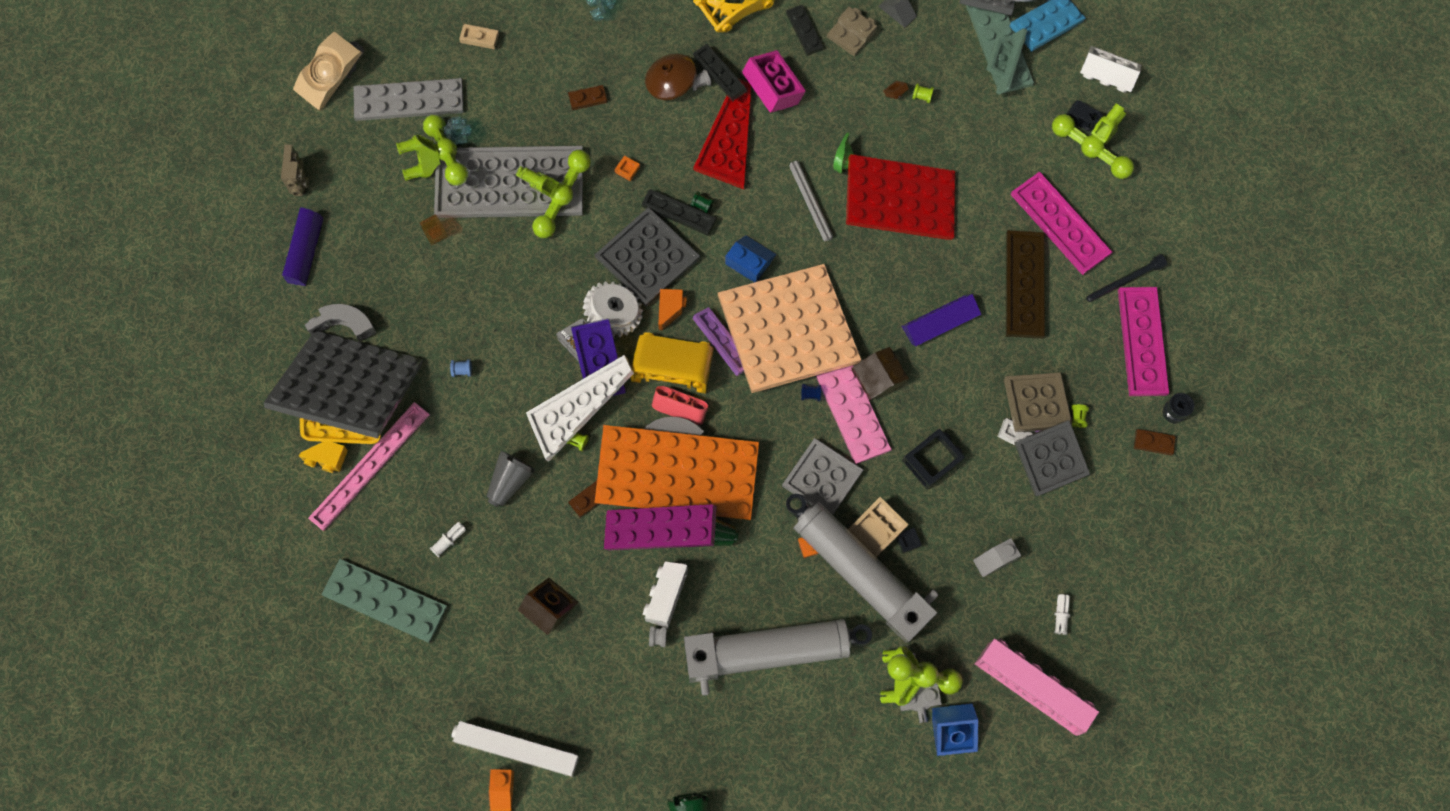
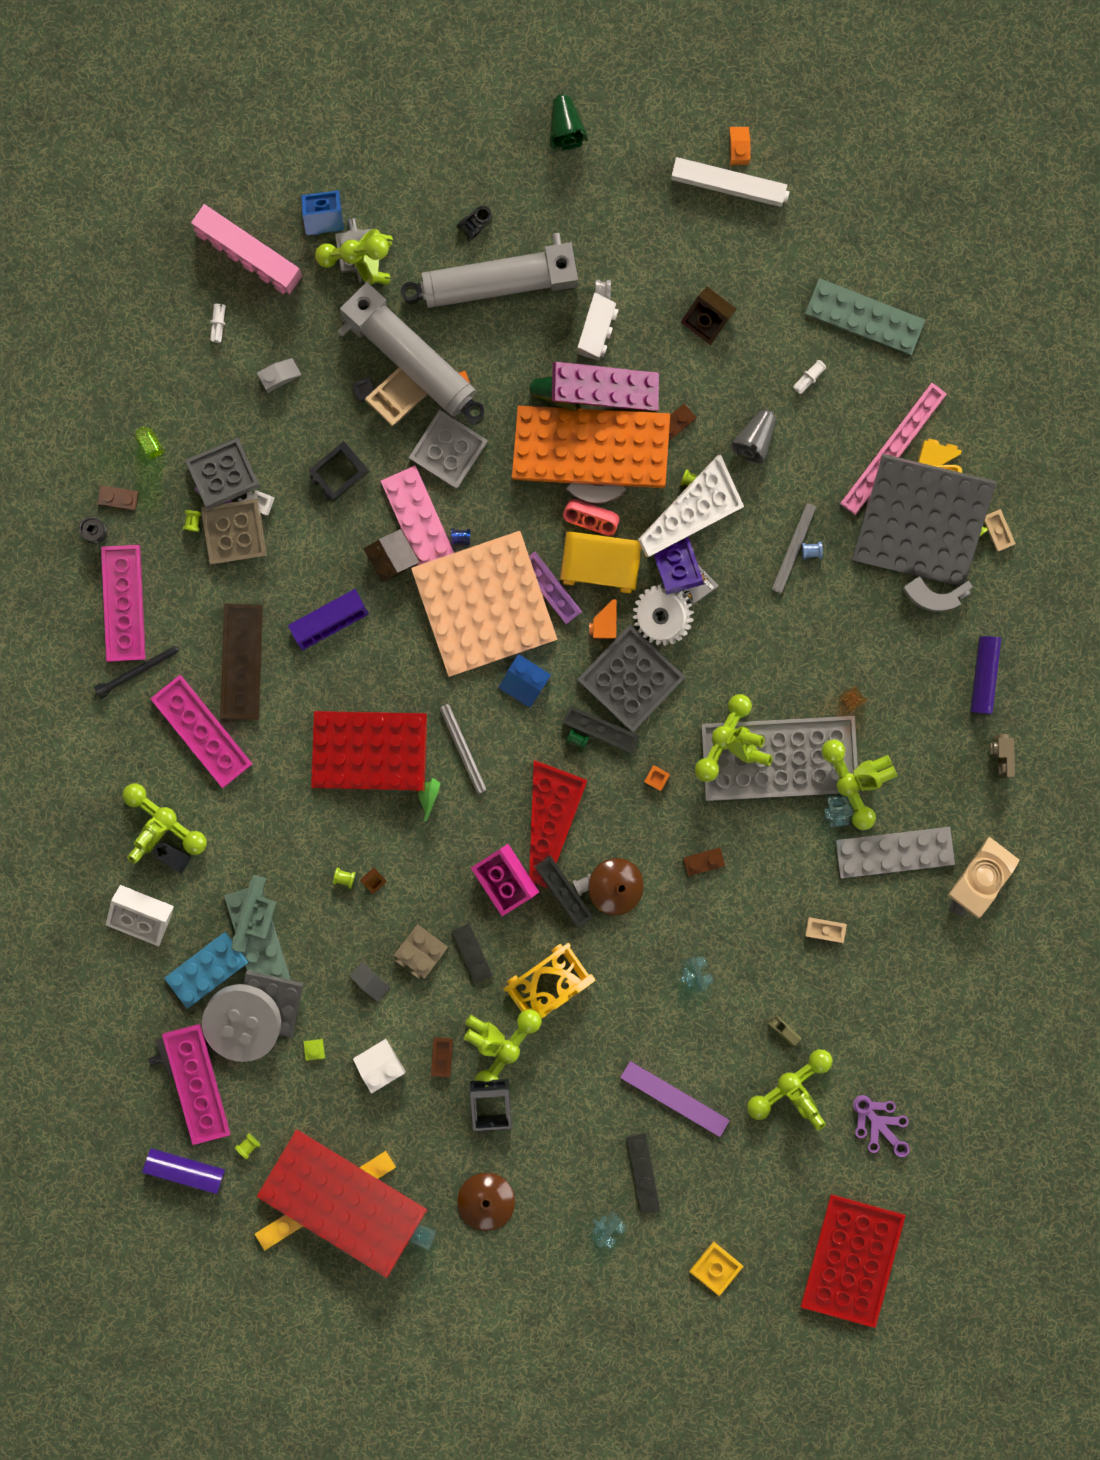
camera: 175 degrees right, 15 degrees up
(269, 375) = (999, 530): none -> tan plate
(478, 373) = (794, 548): none -> light grey axle
(793, 710) = (474, 223): none -> black piece
(1128, 489) = (149, 442): none -> clear neon green brick

